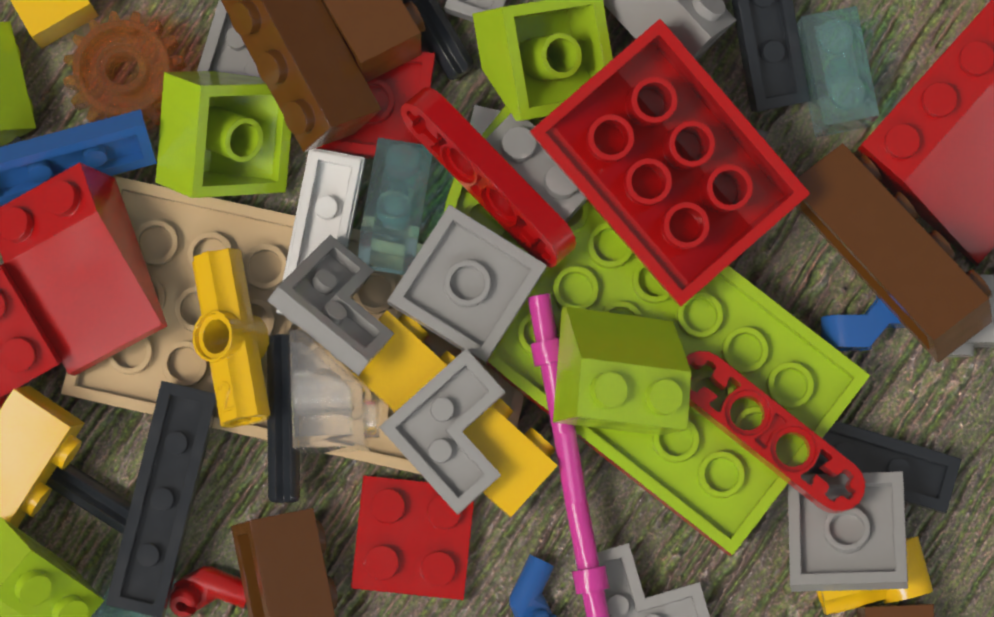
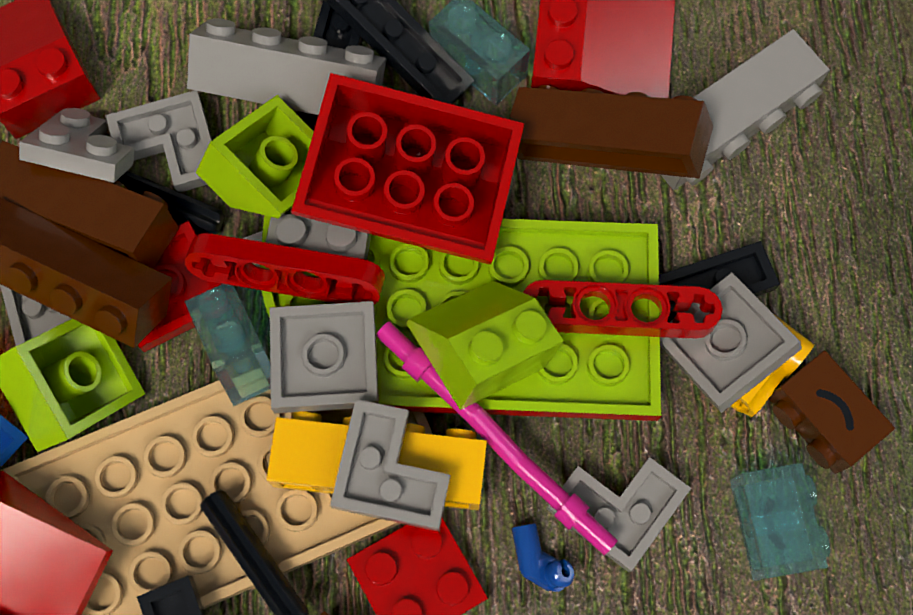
camera: 35 degrees left, 10 degrees down
(230, 338) = (170, 525): yellow piece -> none
(321, 303) = (219, 441): light grey plate -> none
(325, 203) = (191, 404): white tile -> none
(327, 403) = (277, 517): clear slope -> none
(858, 331) = (626, 202): blue piece -> none

